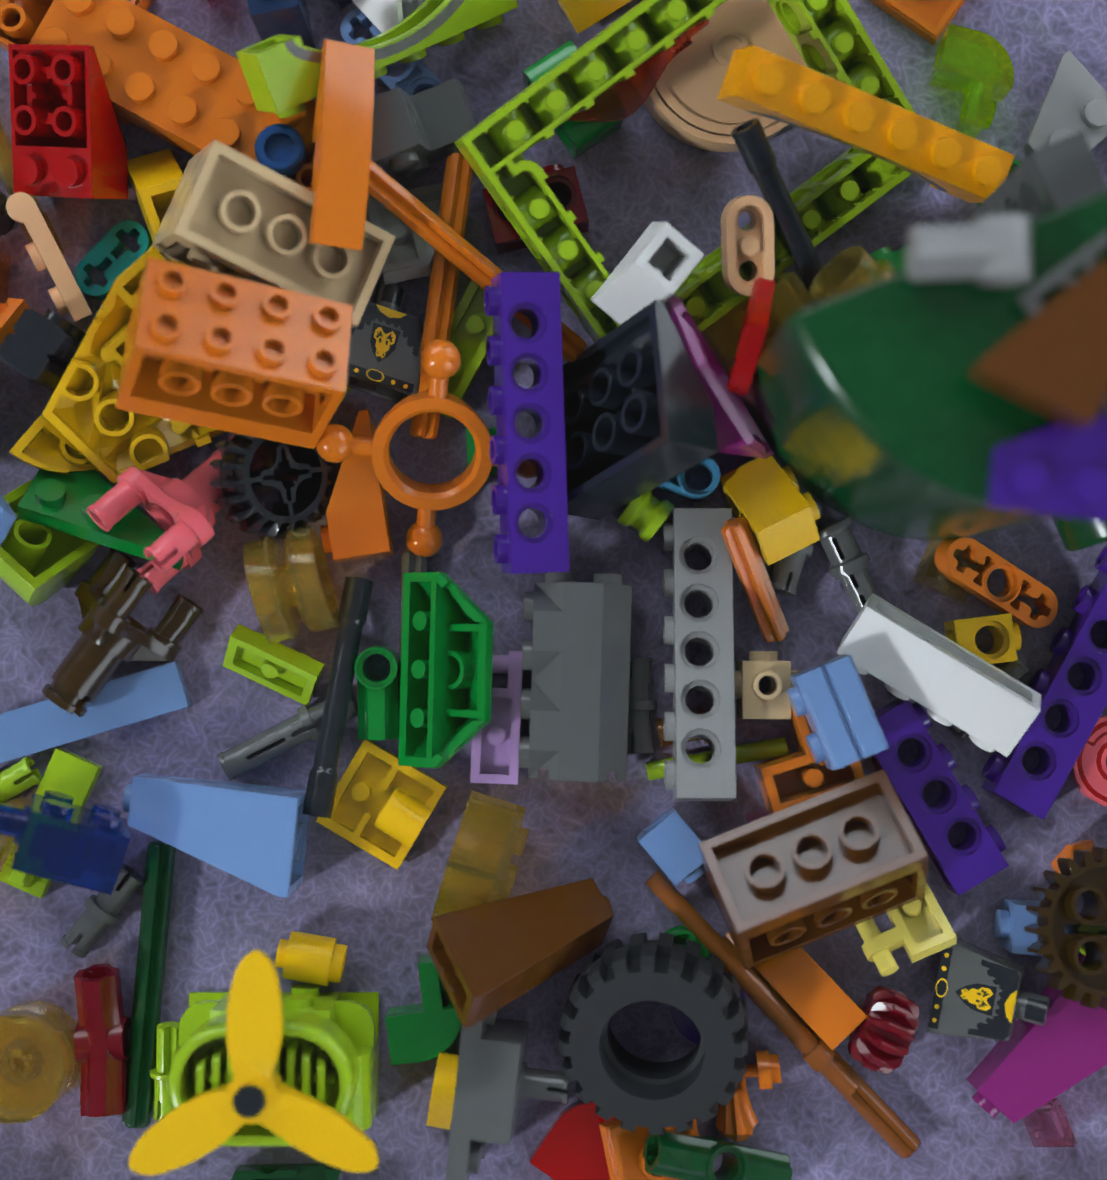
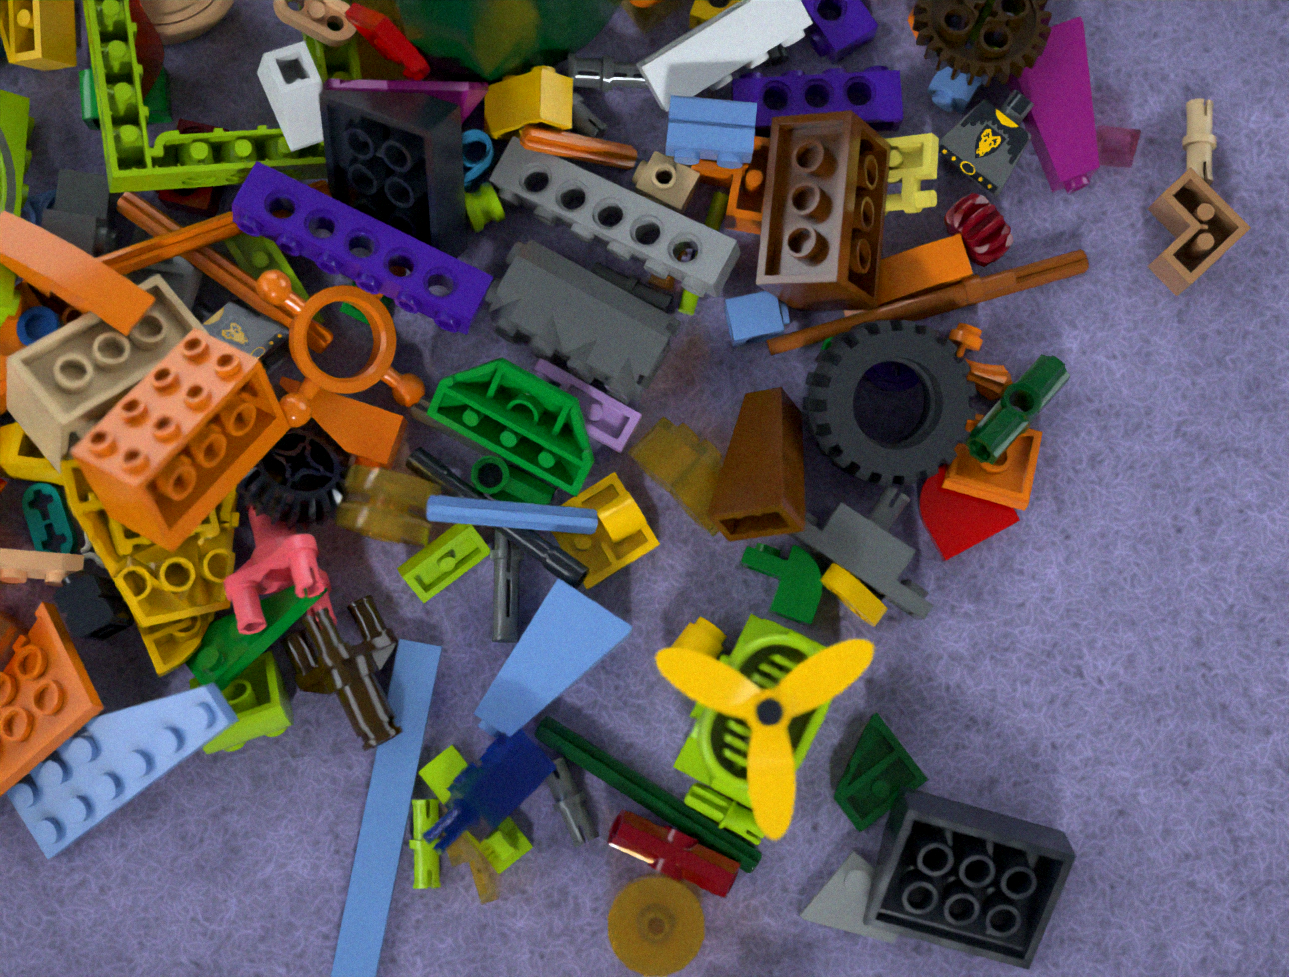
camera: 65 degrees left, 5 degrees down
(343, 713) = (511, 514): none -> medium blue axle

